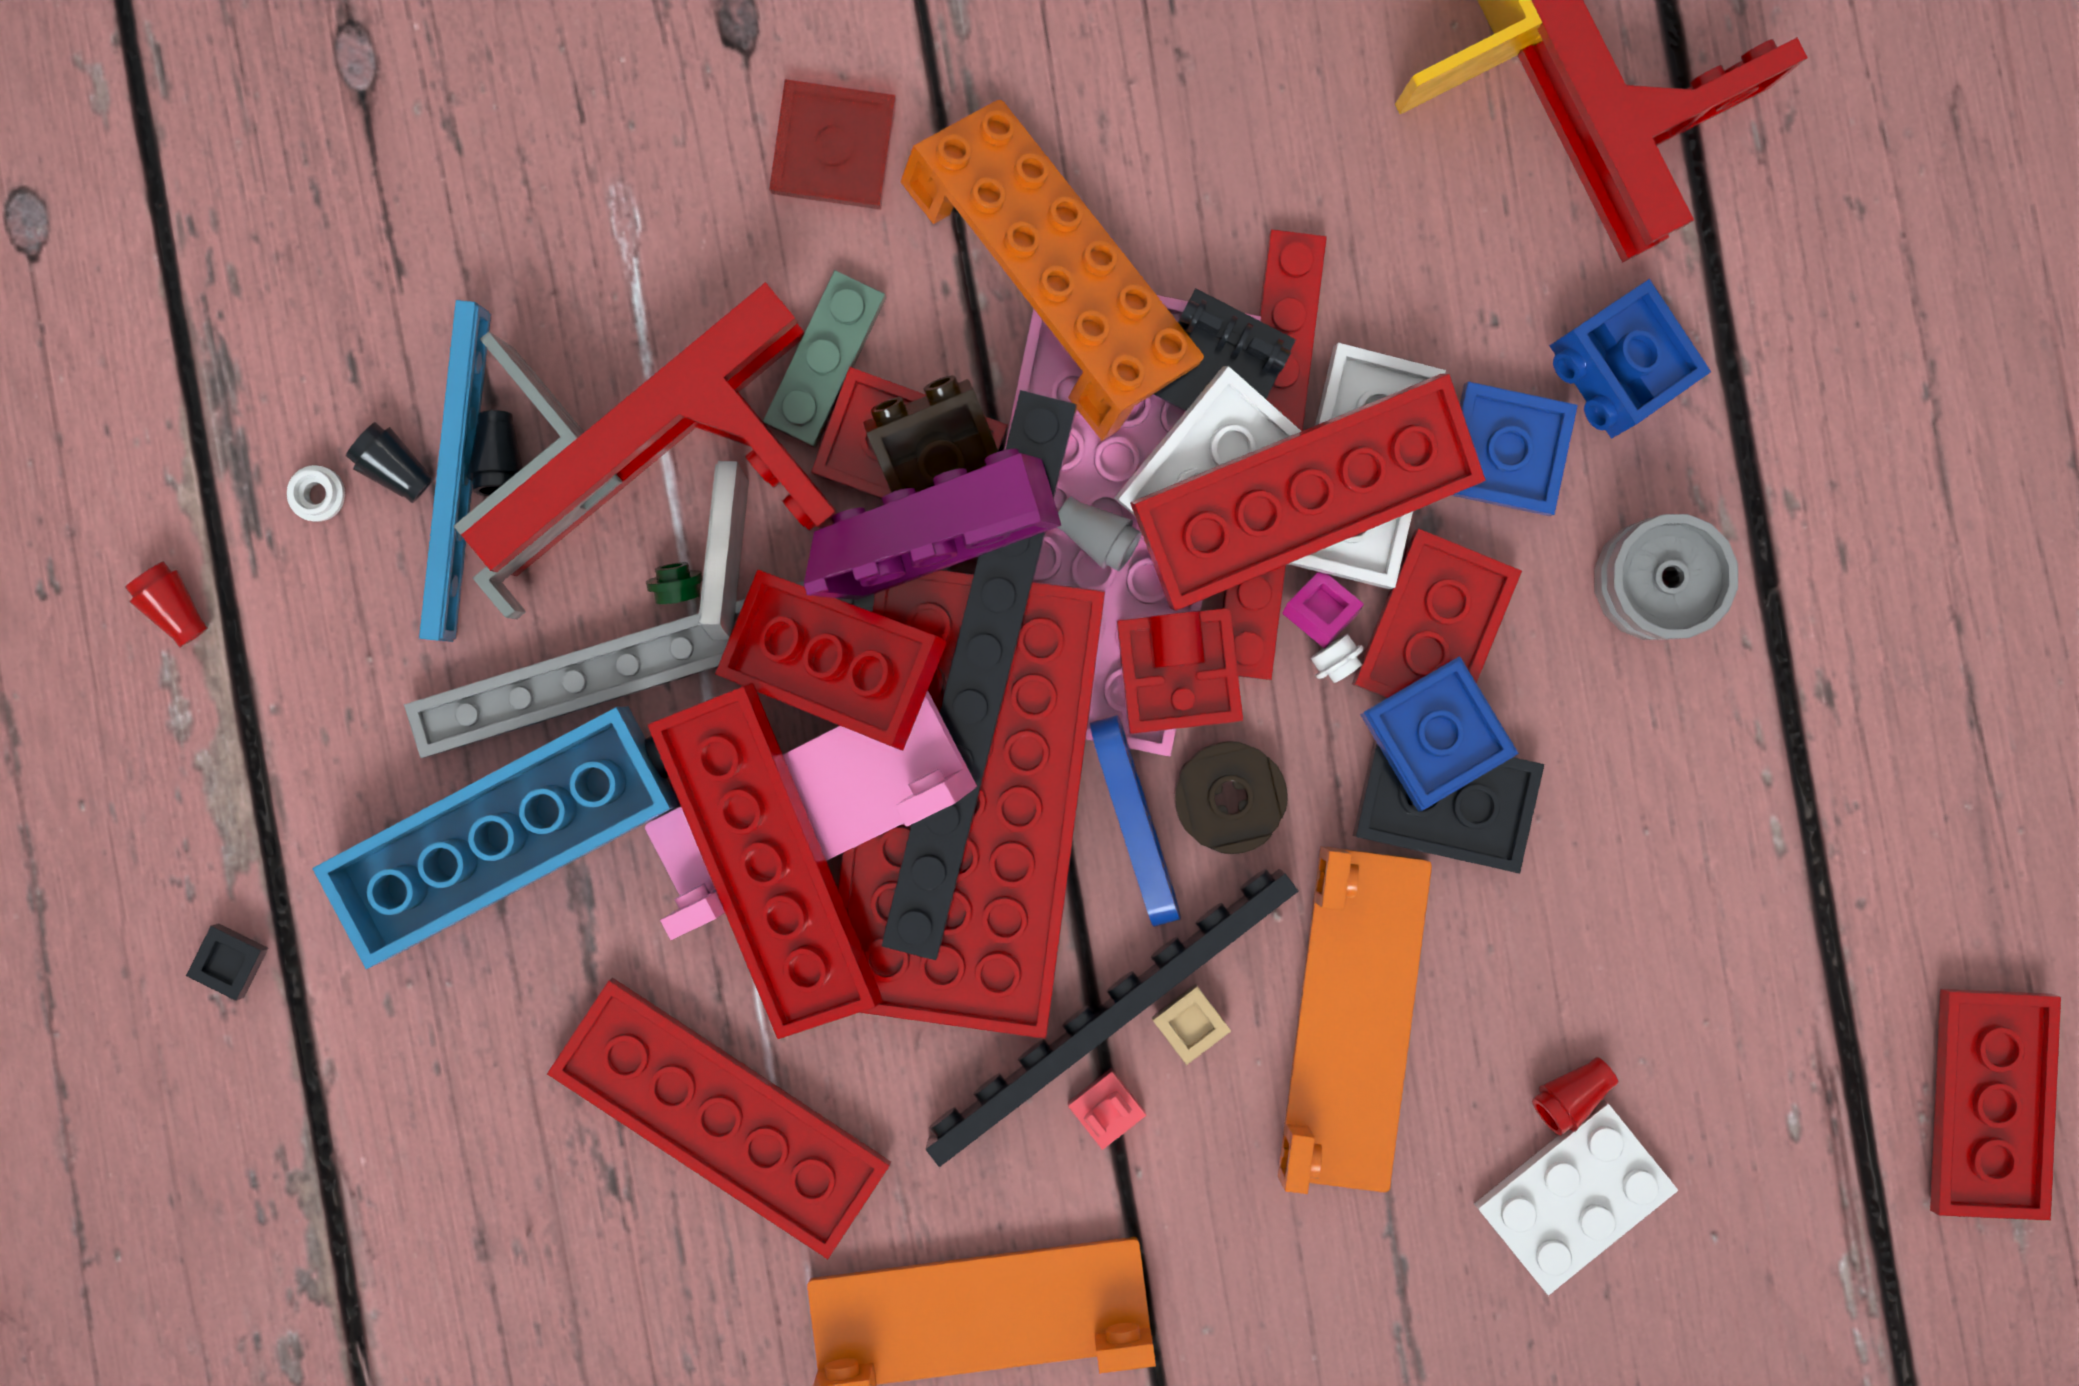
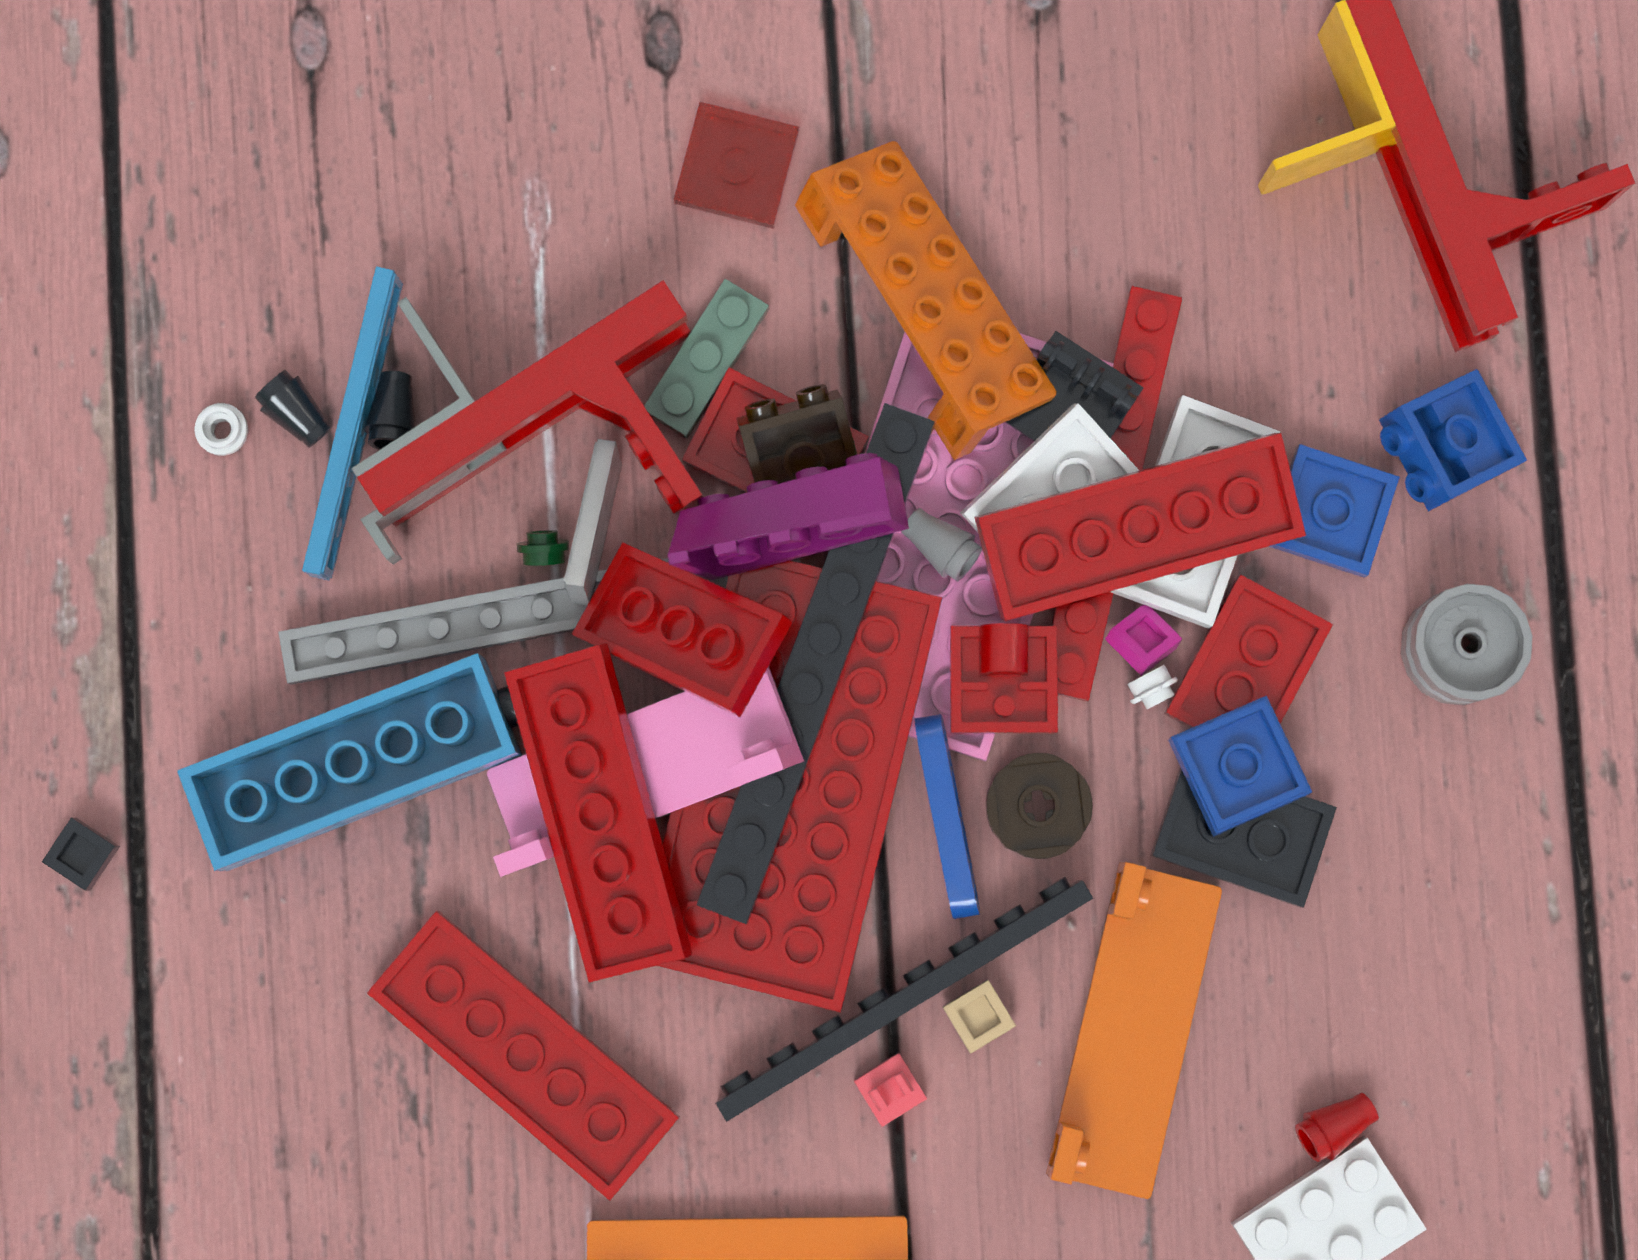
camera: 15 degrees right, 5 degrees down
(167, 603) = (71, 514): red cone -> none

